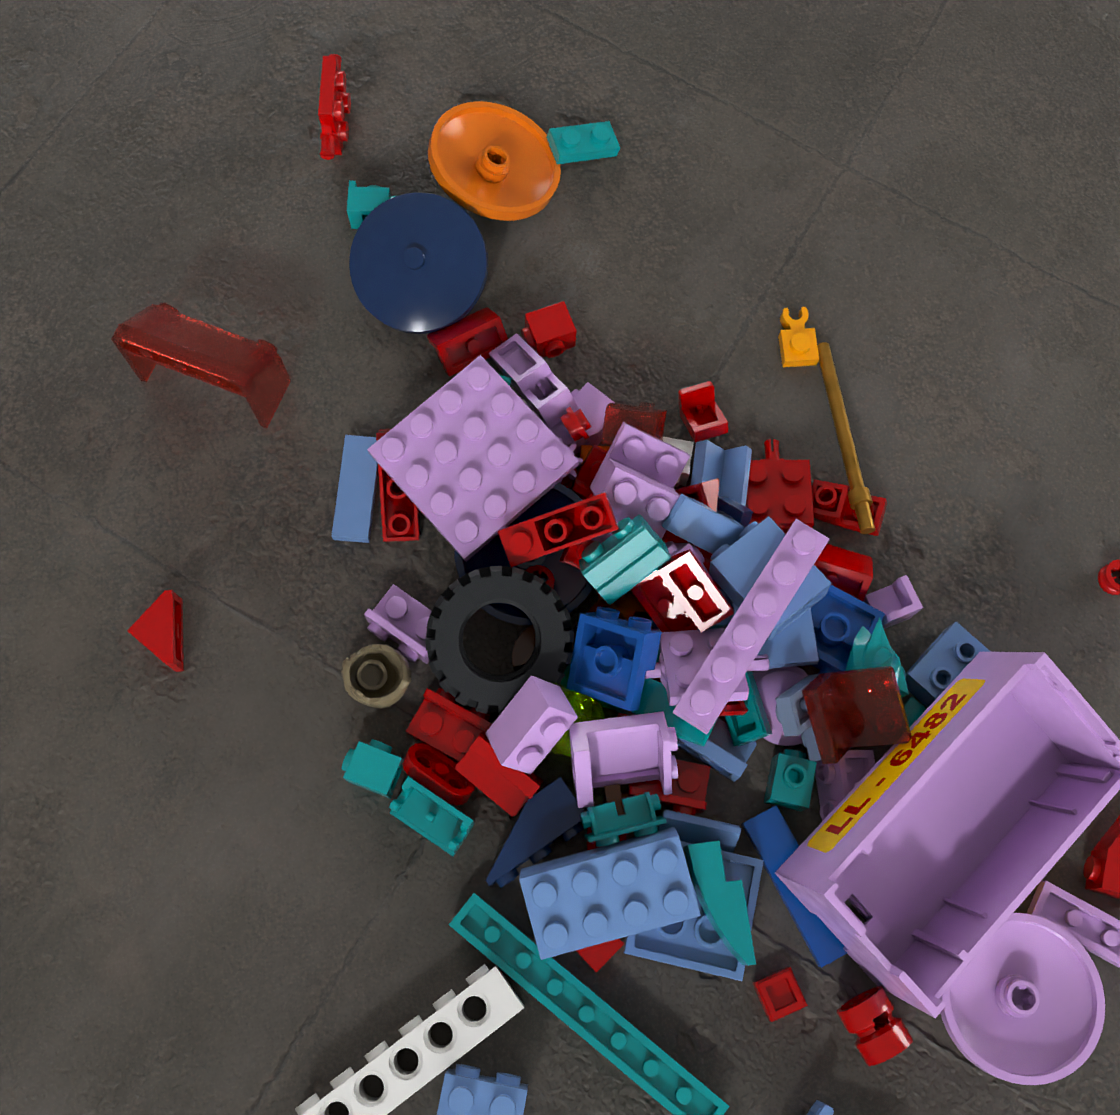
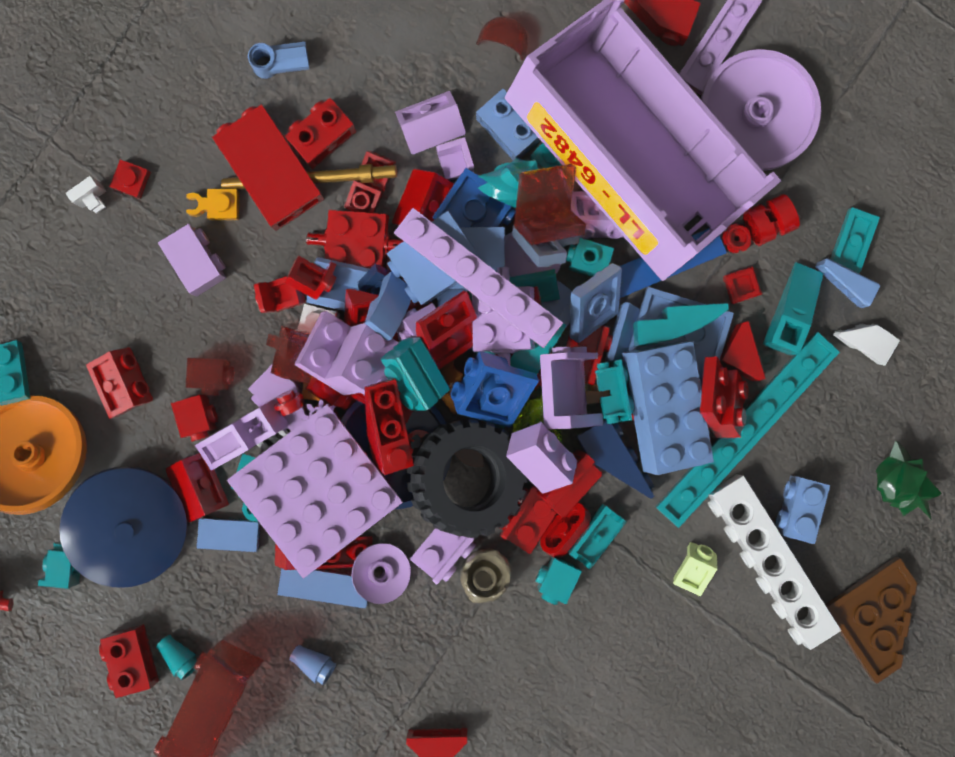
camera: 80 degrees left, 15 degrees up
(261, 483) = (313, 664): none -> medium blue cone
(264, 281) = (128, 661): none -> red brick
(272, 328) = (177, 657): none -> teal cone
(356, 555) = (393, 578): none -> lavender dish
(395, 955) = (696, 568): none -> yellowish green bracket
(413, 376) = (228, 534): none -> medium blue tile
(583, 252) = (119, 382): none -> red bracket
(599, 342) = (209, 375): none -> clear red brick
(625, 968) = (723, 399): none -> red plate
(687, 997) = (741, 353): none -> red slope
(726, 440) = (311, 278): none -> red bracket
(731, 317) = (192, 259): none -> lavender brick
(736, 785) = (595, 302): none -> medium blue plate
(756, 1070) = (794, 311): none -> teal slope
(791, 206) = (87, 194): none -> white tile
(813, 249) = (130, 179): none -> red plate
(847, 389) = (267, 167): none -> red panel
(852, 981) = (744, 238): none -> red plate
(899, 445) = (320, 132): none -> red brick
(932, 572) = (431, 122): none -> lavender panel
(980, 395) = (282, 58): none -> medium blue piece
(1061, 647) = (506, 32): none -> clear red helmet

